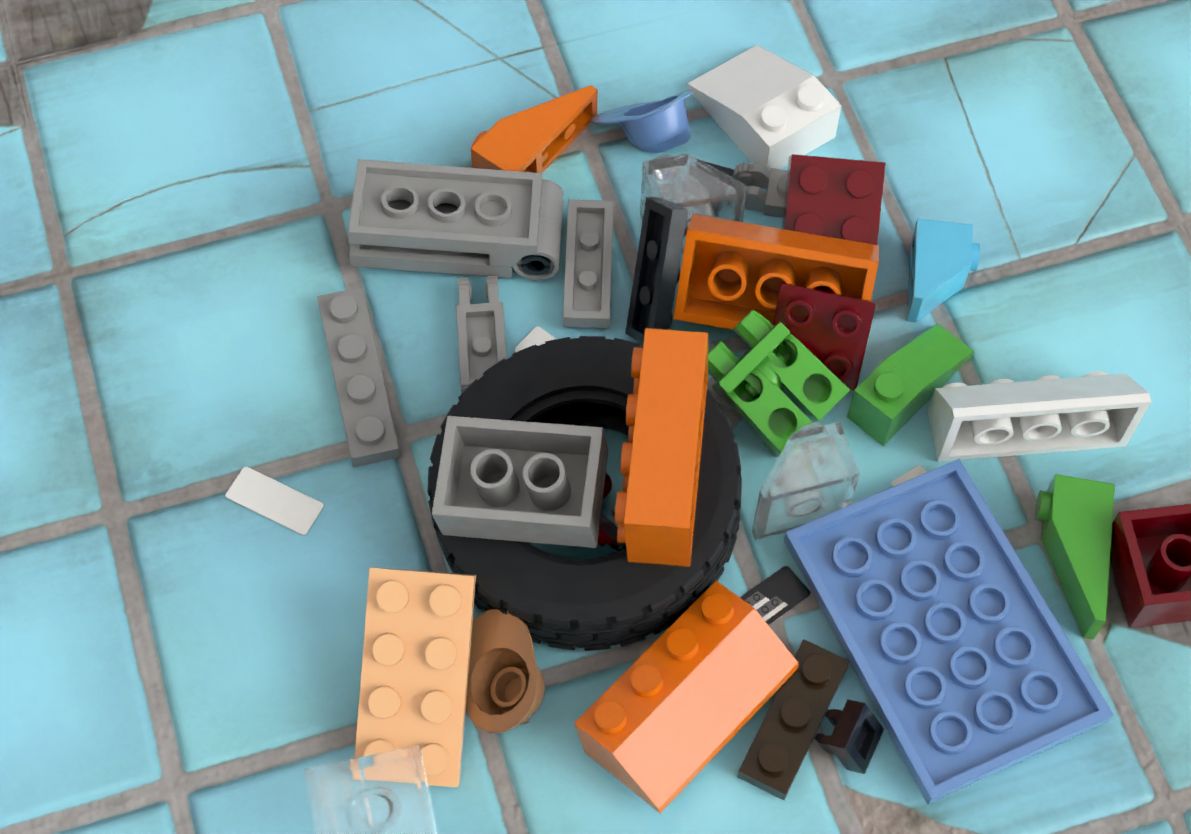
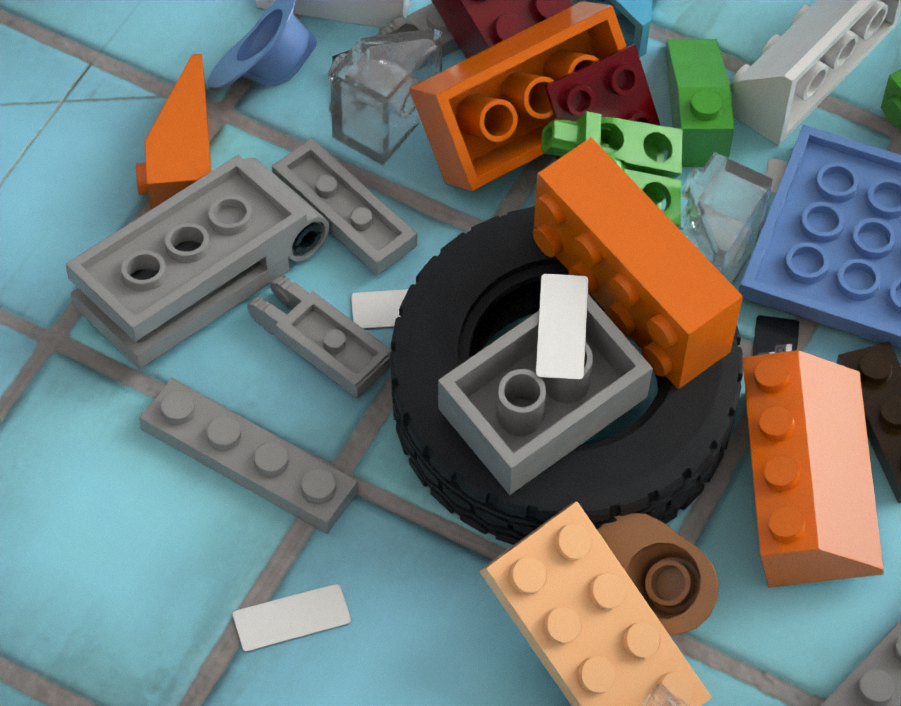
camera: 45 degrees left, 5 degrees down
(560, 447) = (562, 326): none -> white sticker
(656, 267) = (430, 157): black plate -> none

